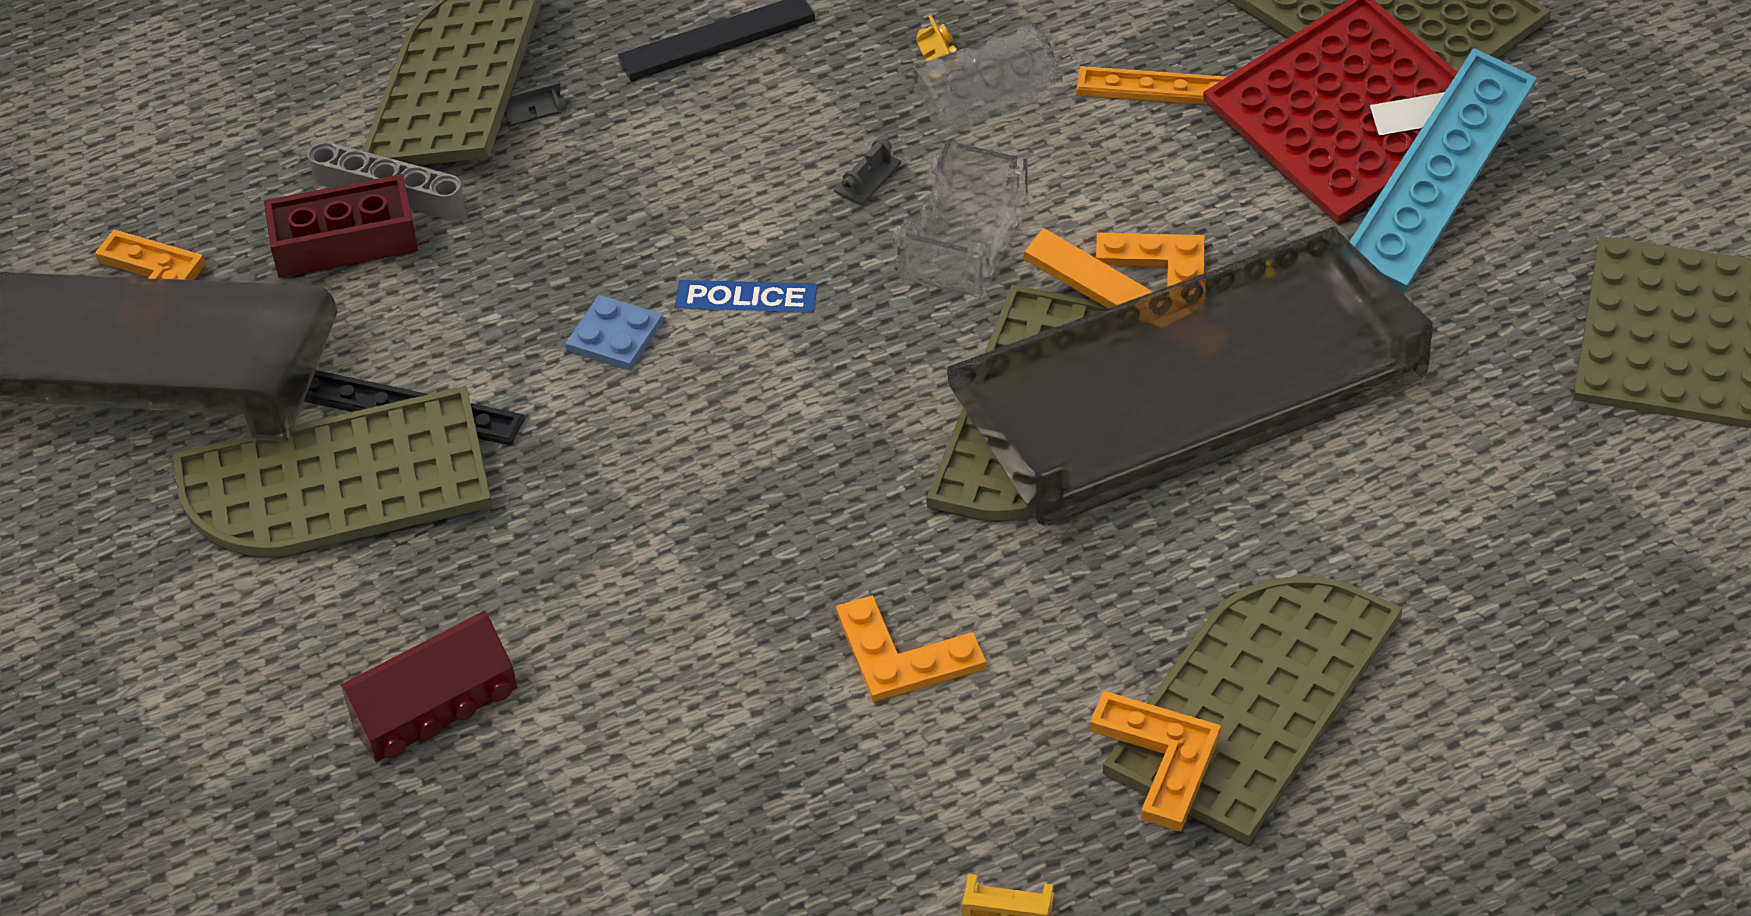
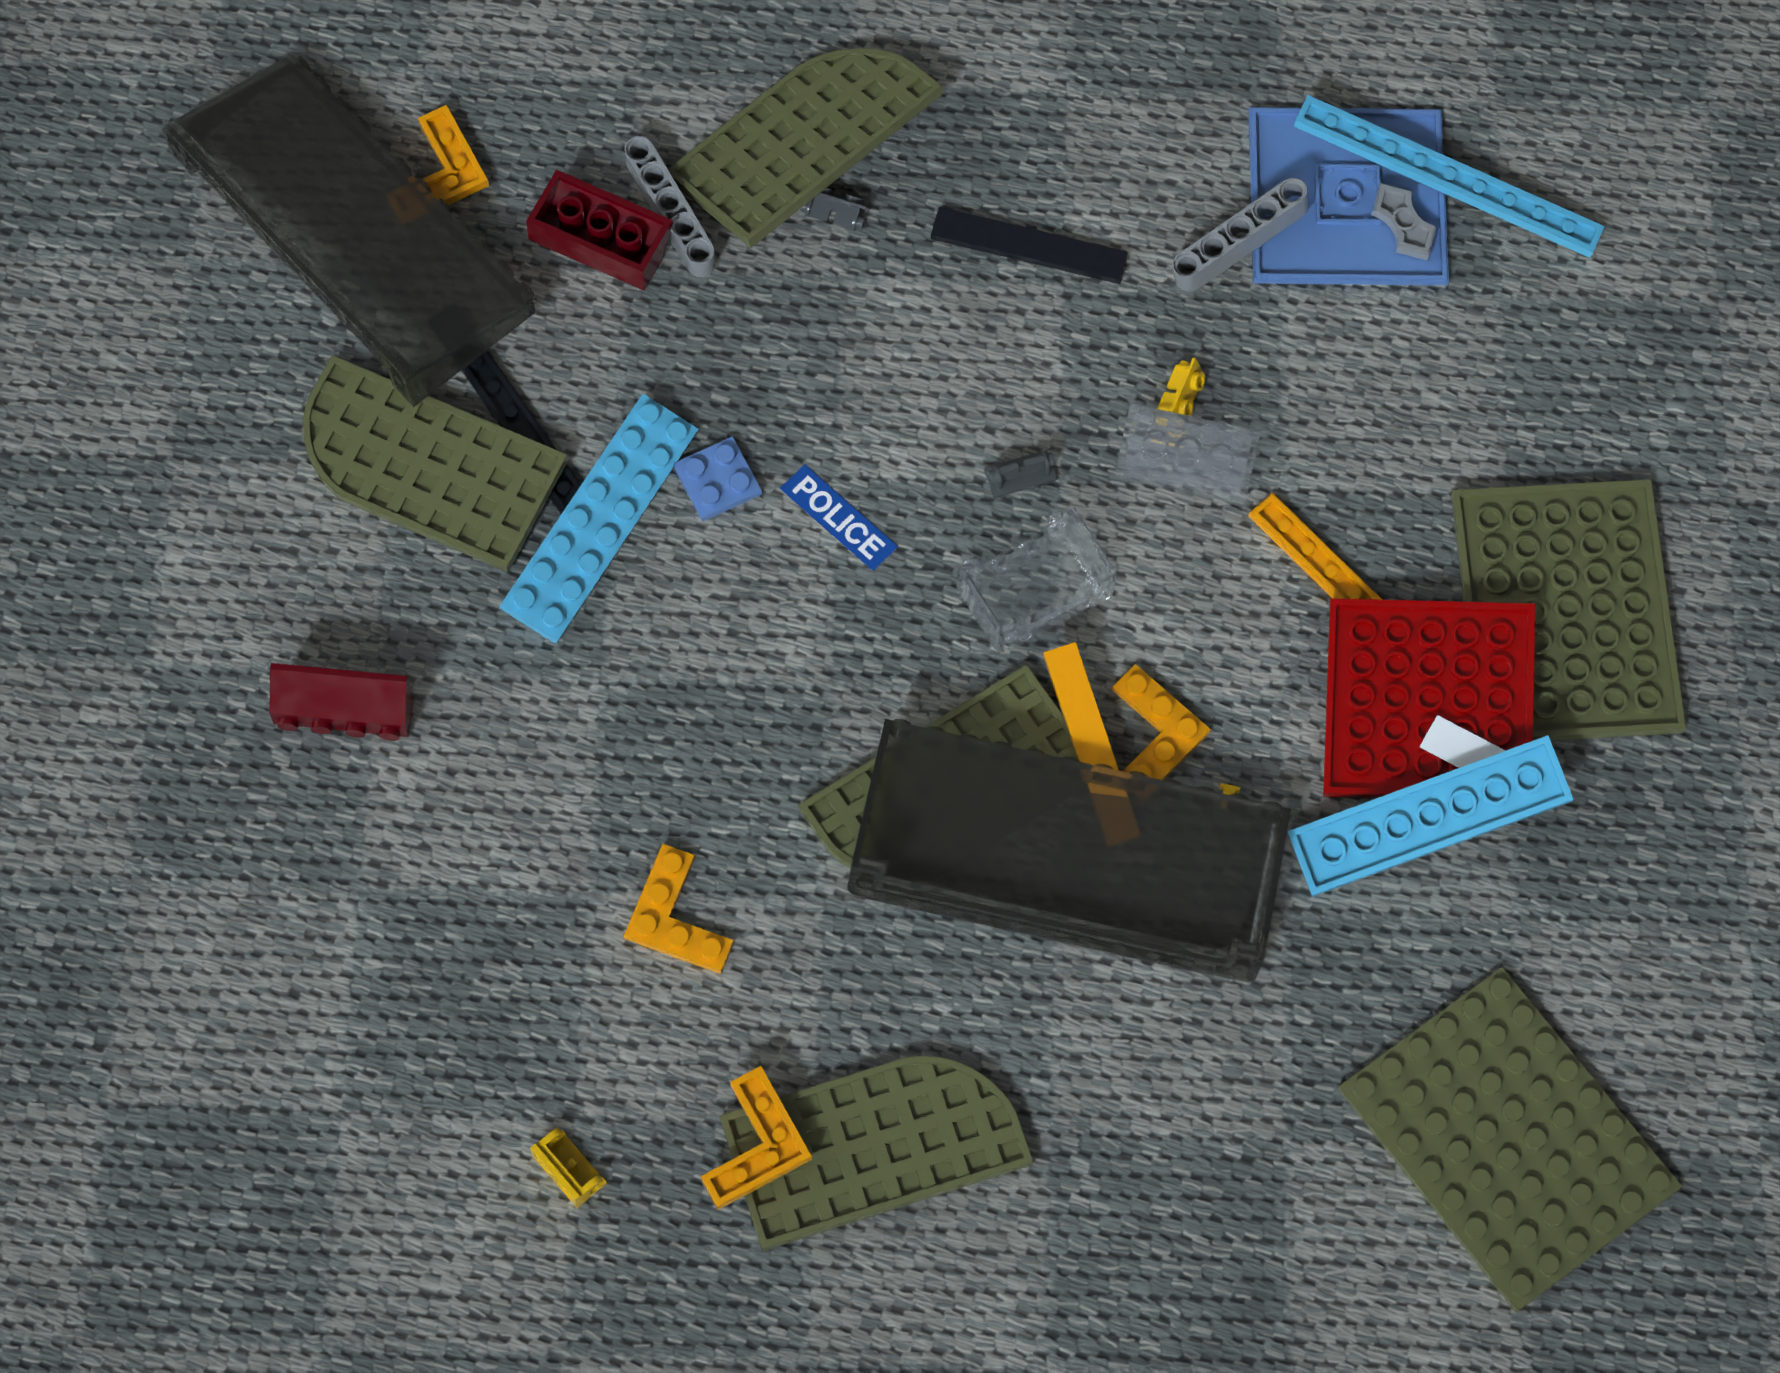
camera: 35 degrees right, 20 degrees up
(538, 422) = (598, 519): none -> medium azure plate

